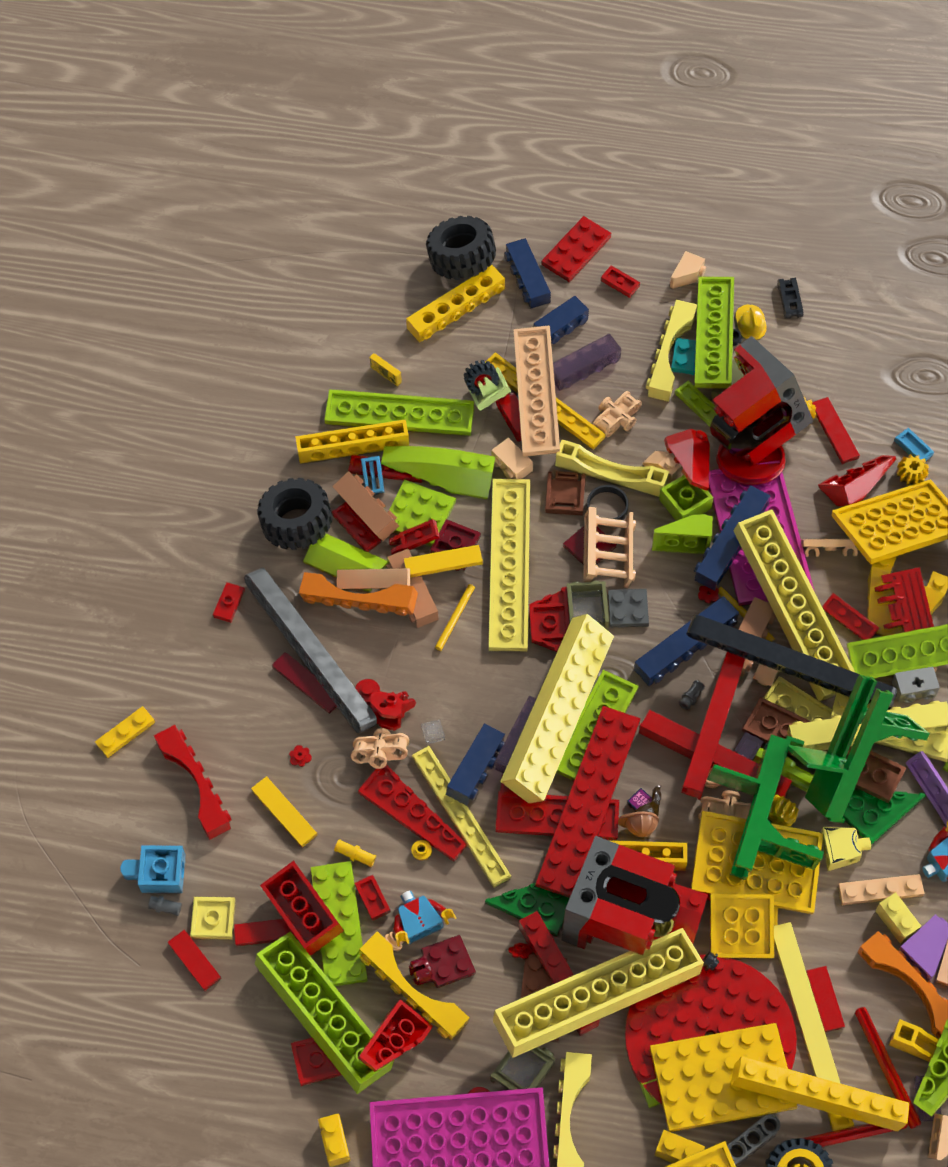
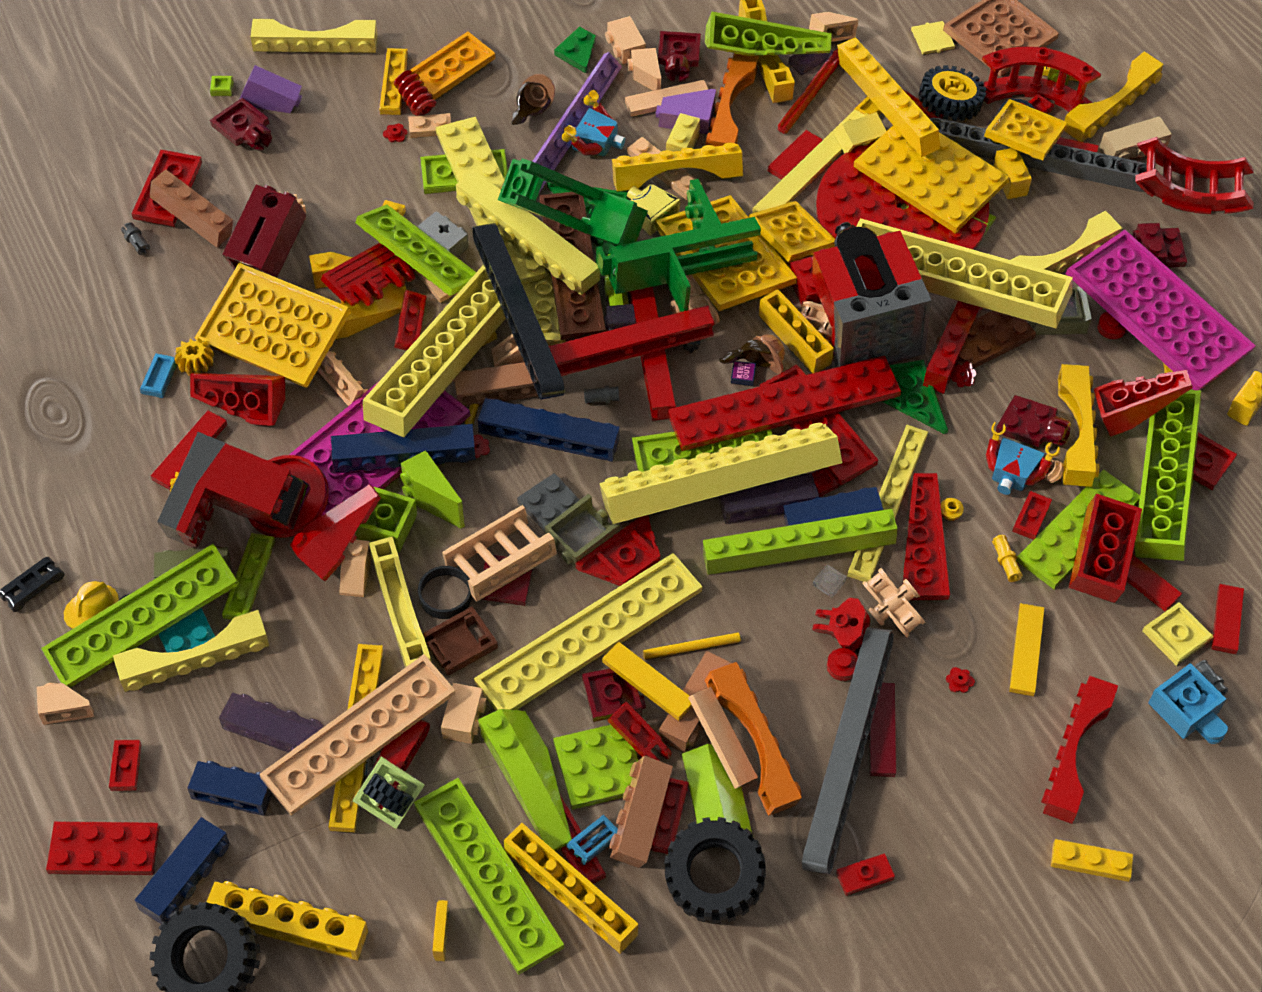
camera: 130 degrees left, 5 degrees down
(470, 724) = (799, 541): none -> lime brick
(617, 413) = (320, 651): light nougat axle -> none
(806, 1054) = (859, 131): none -> light yellow brick
(855, 921) = (723, 161): none -> yellow arch

